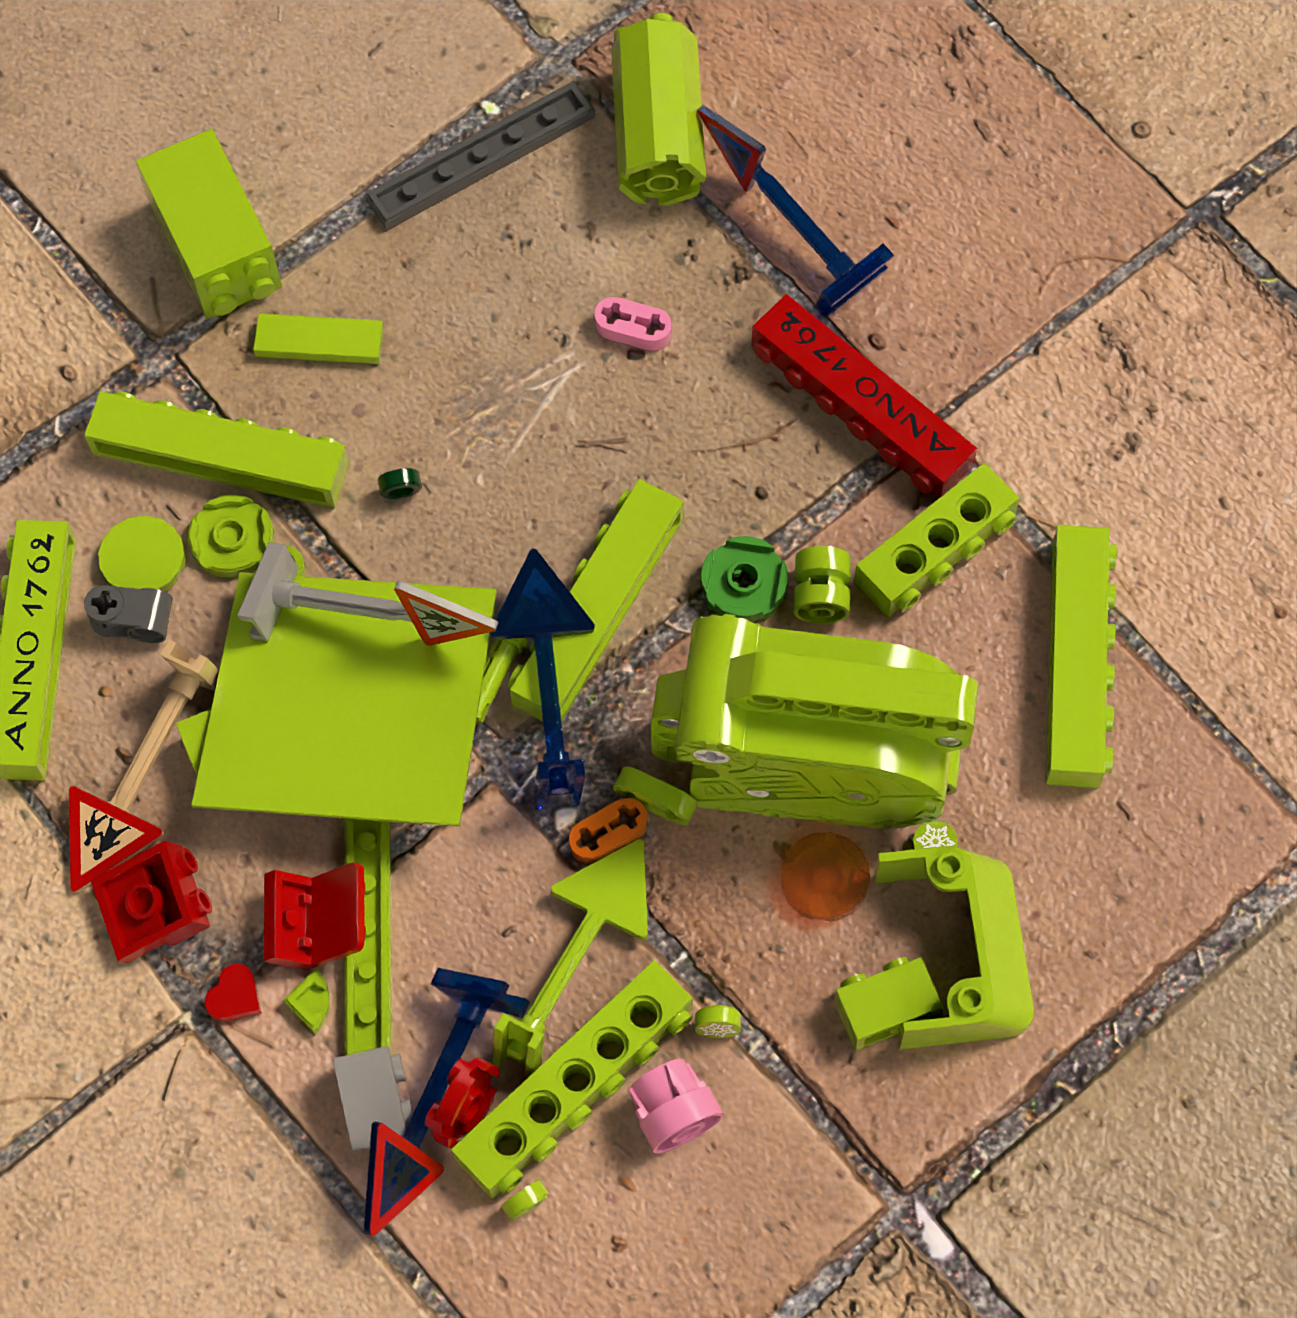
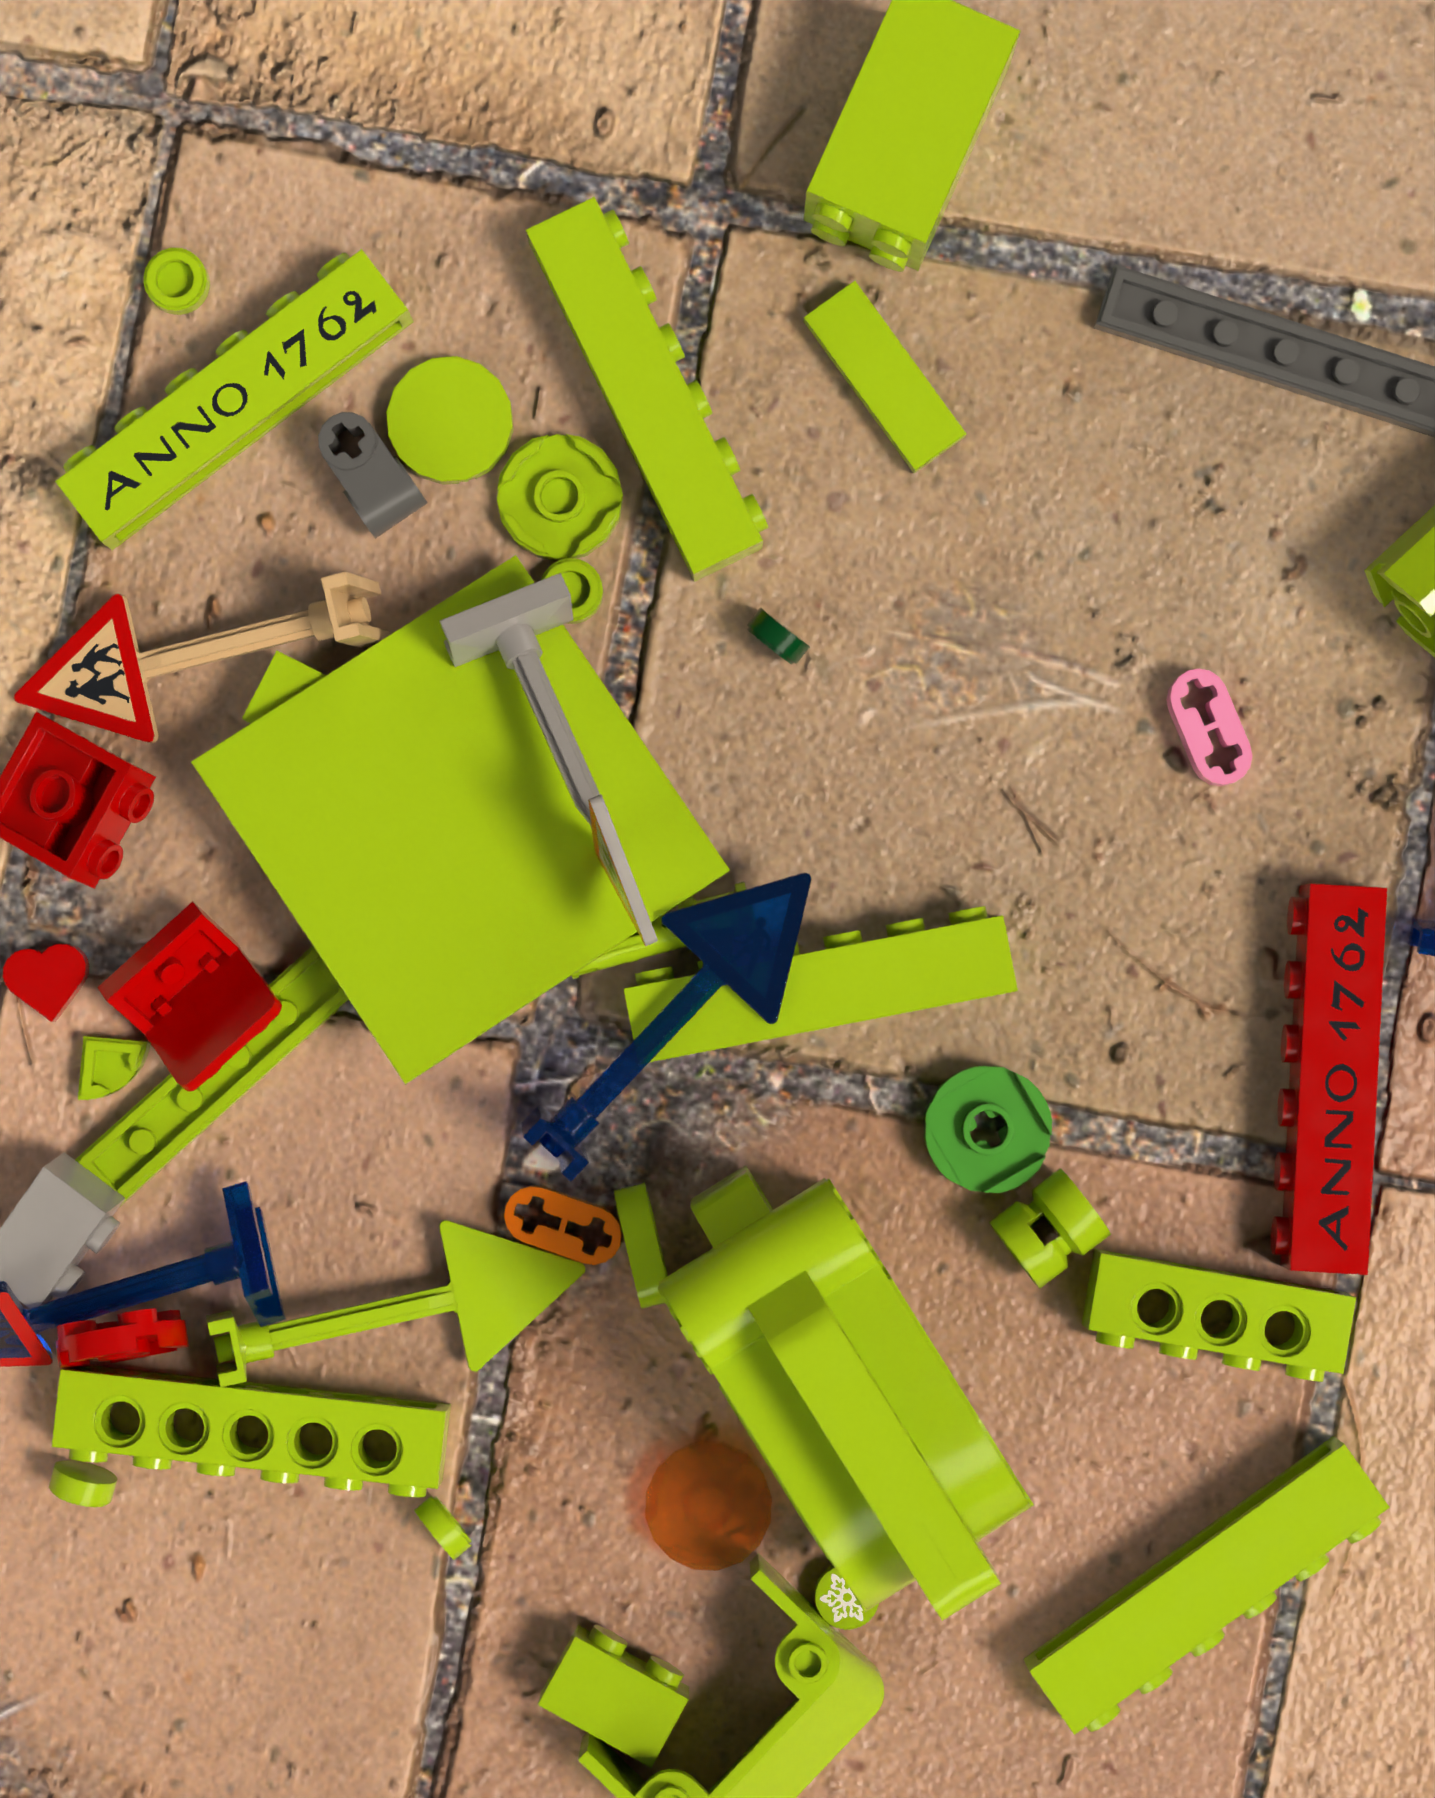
camera: 50 degrees right, 20 degrees up
(673, 1105) = (306, 1563): bright pink piece -> none

